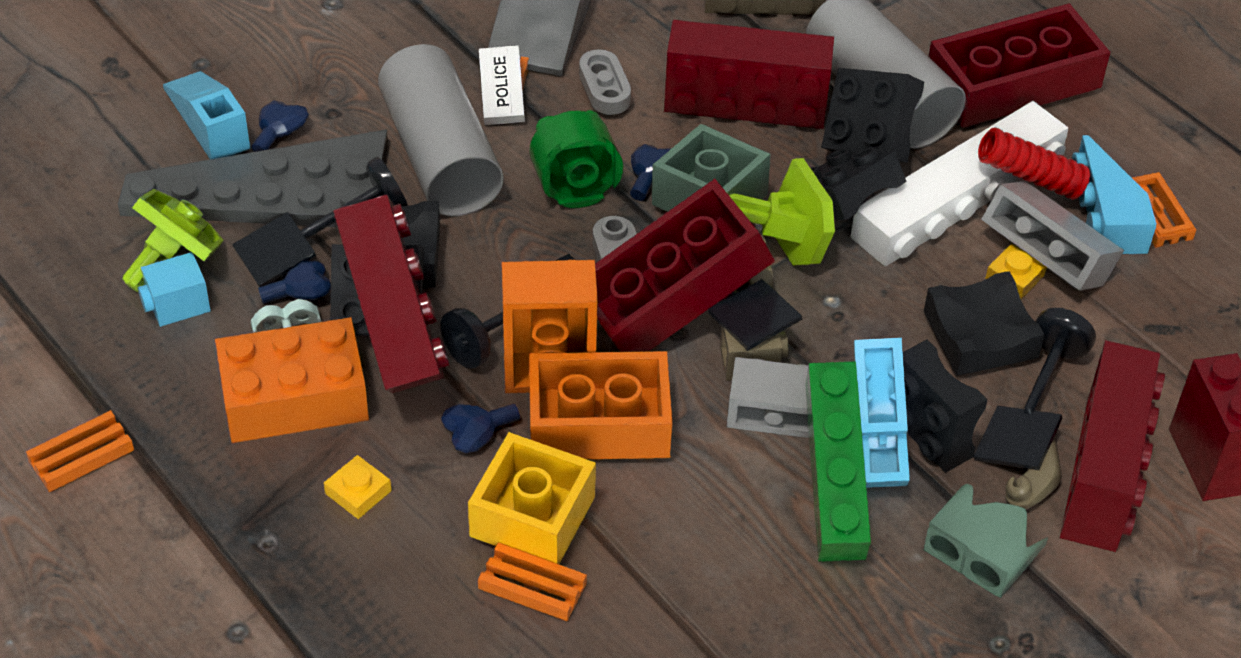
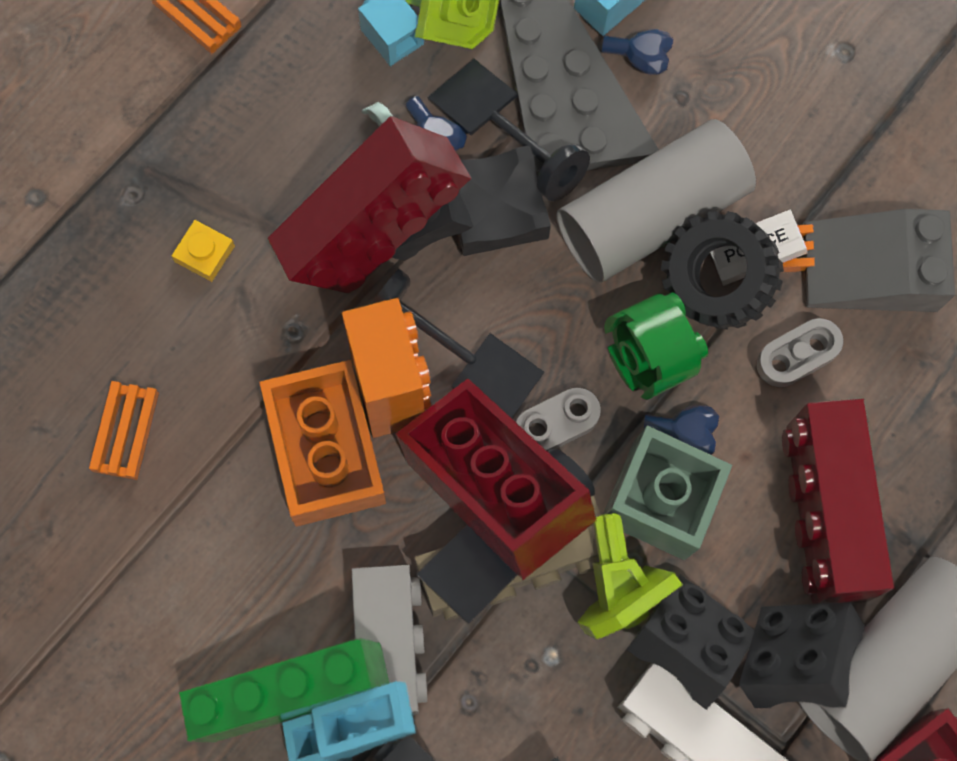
camera: 75 degrees right, 25 degrees up
(292, 380) = (291, 142): orange brick -> none
(474, 426) = (295, 334): dark blue rock -> none
(525, 68) = (696, 244): none -> black tyre
(532, 498) = (194, 406): yellow brick -> none

